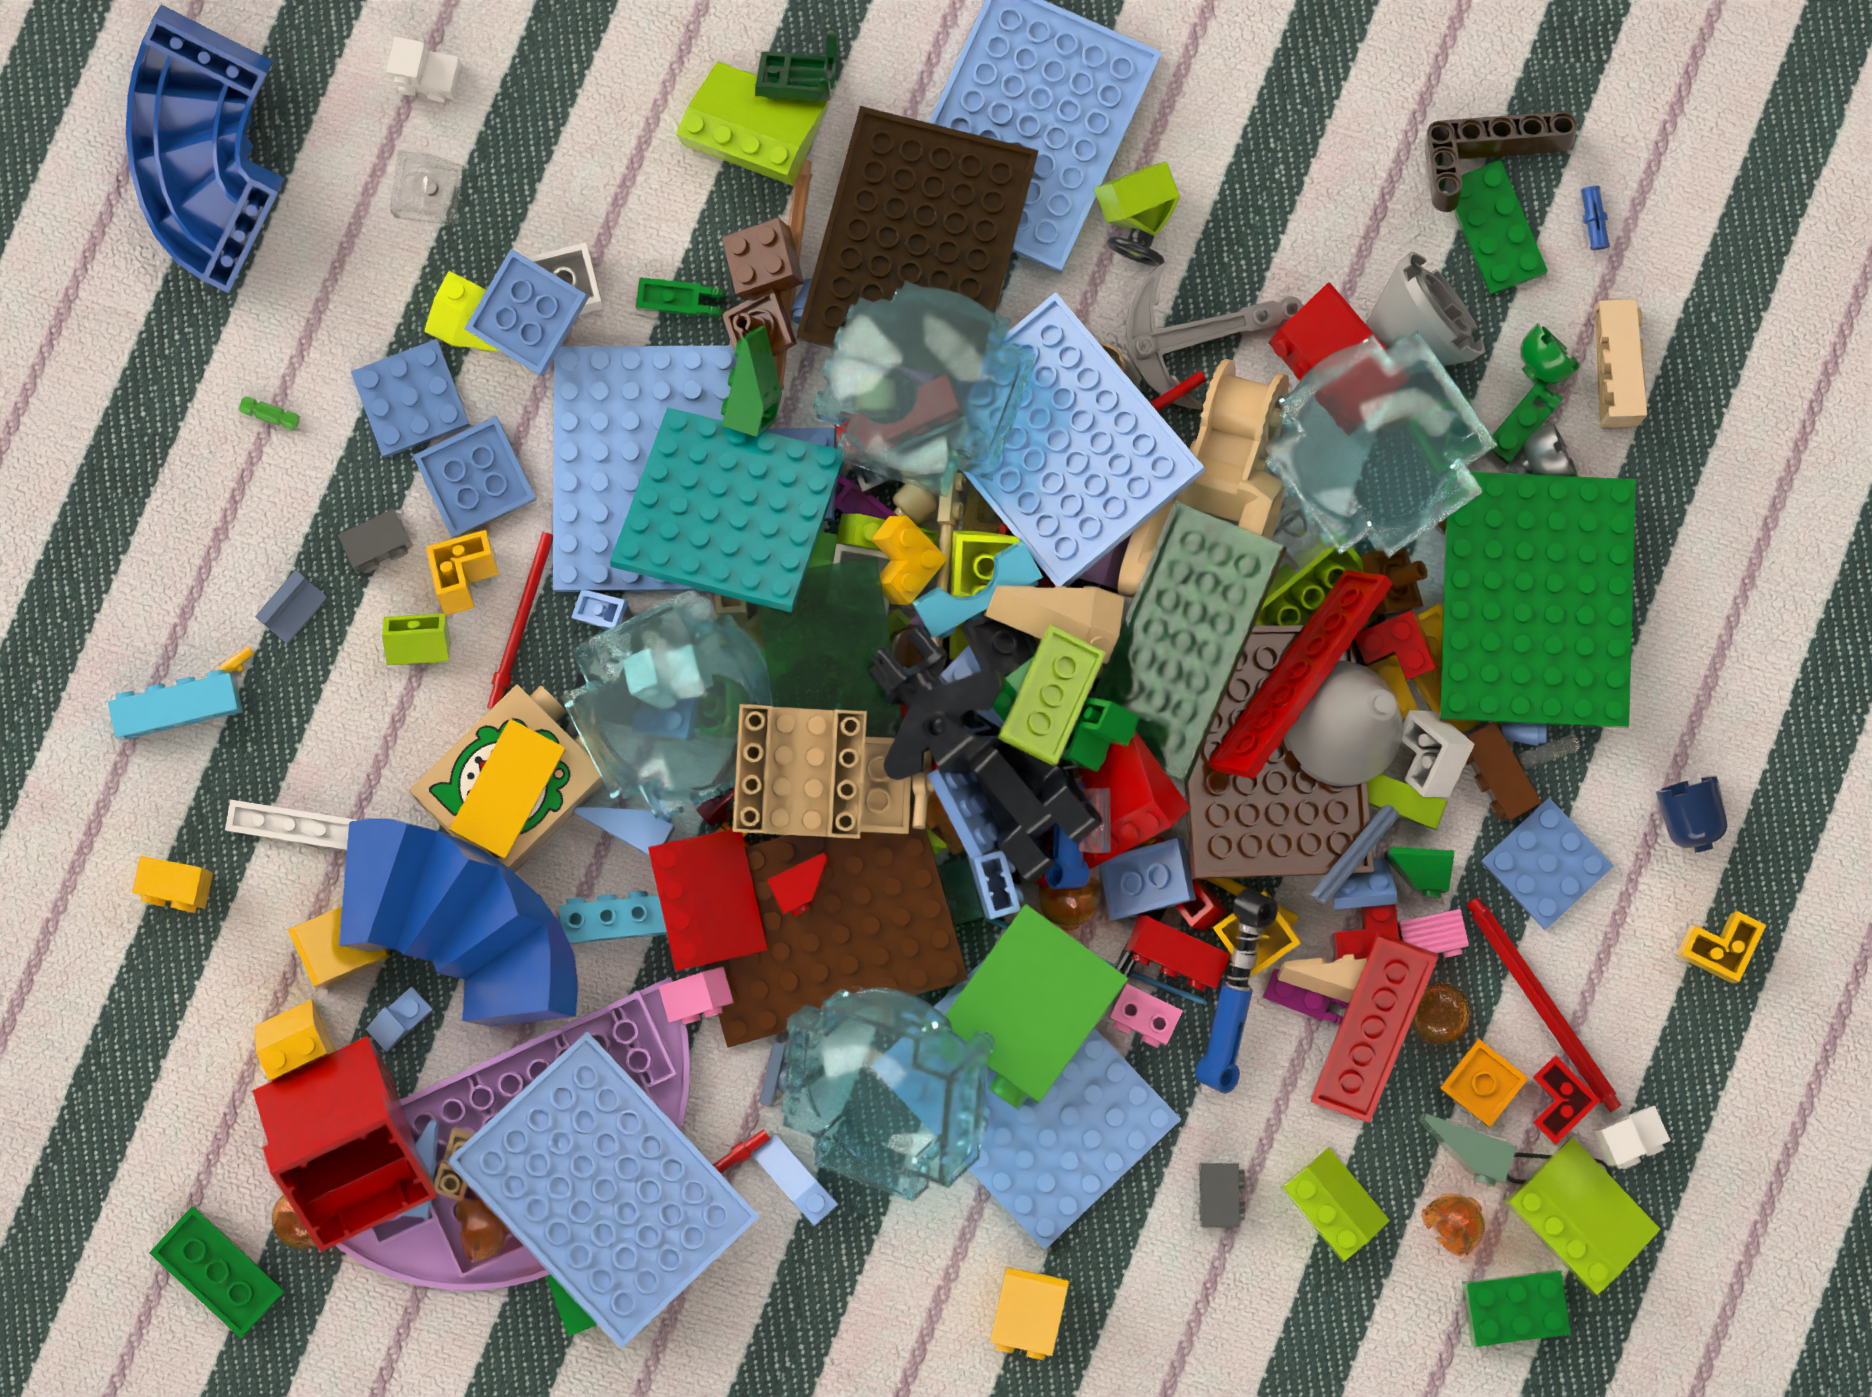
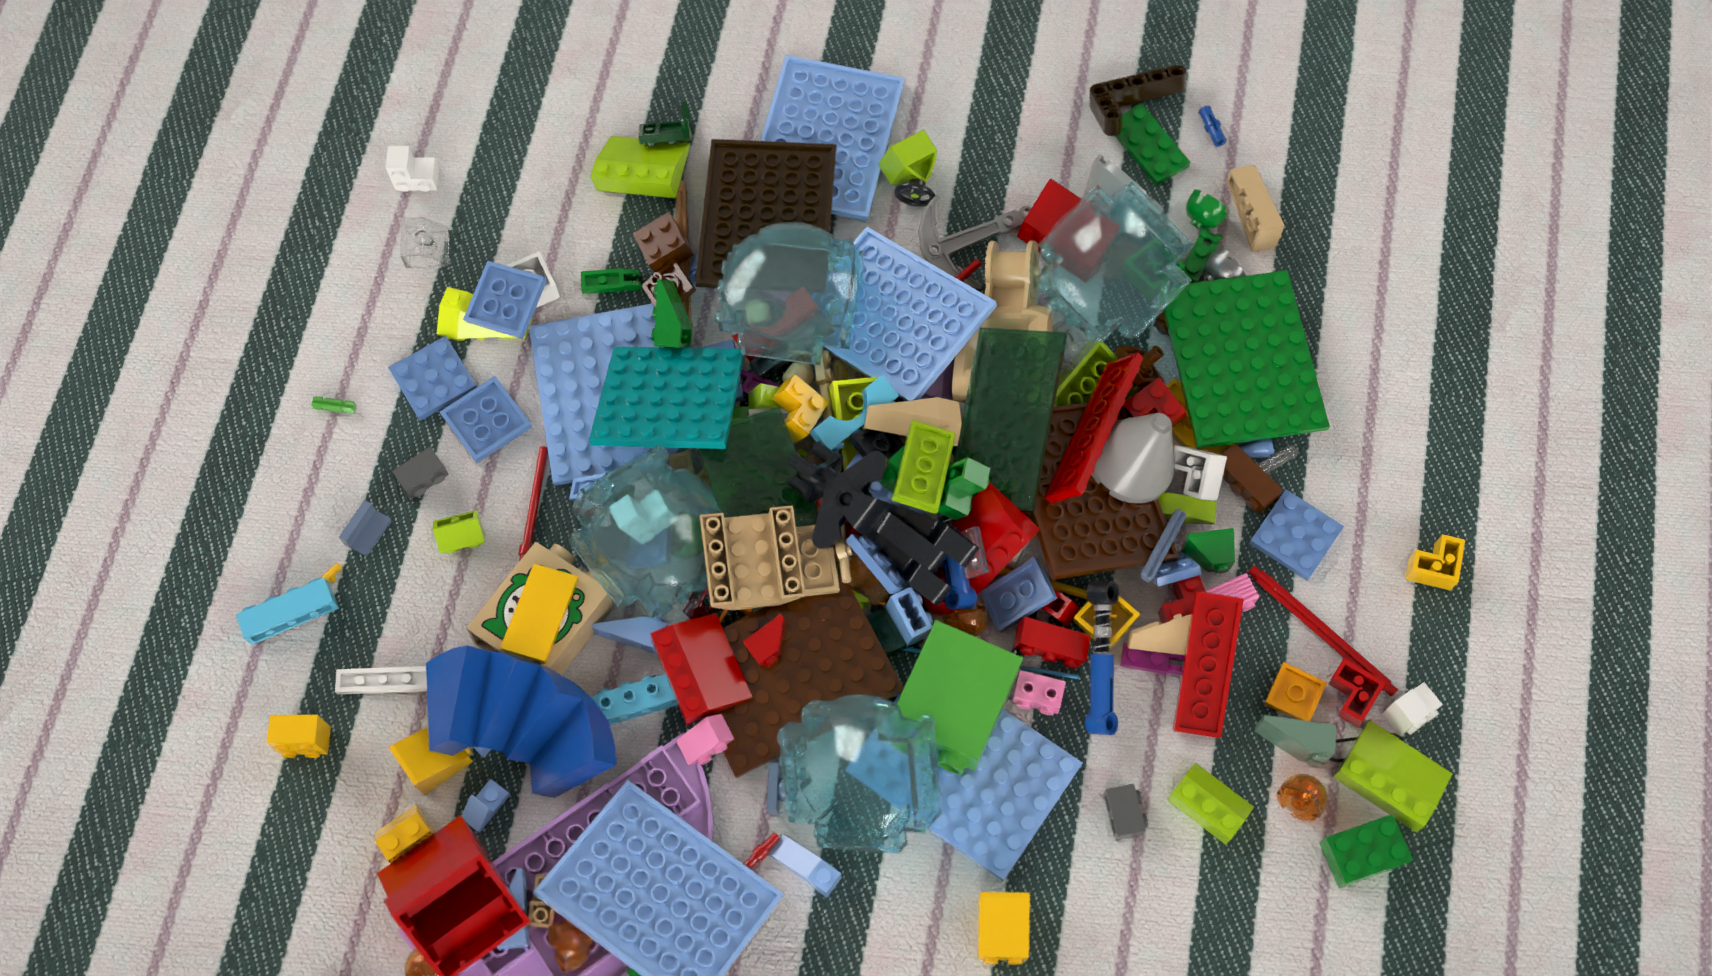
camera: 15 degrees left, 15 degrees down
(191, 146) = (257, 240): blue piece -> none
(458, 564) = (483, 475): yellow brick -> none
(1442, 1014) = (1253, 651): clear orange cylinder -> none
(1694, 813) = (1390, 478): dark blue cylinder -> none

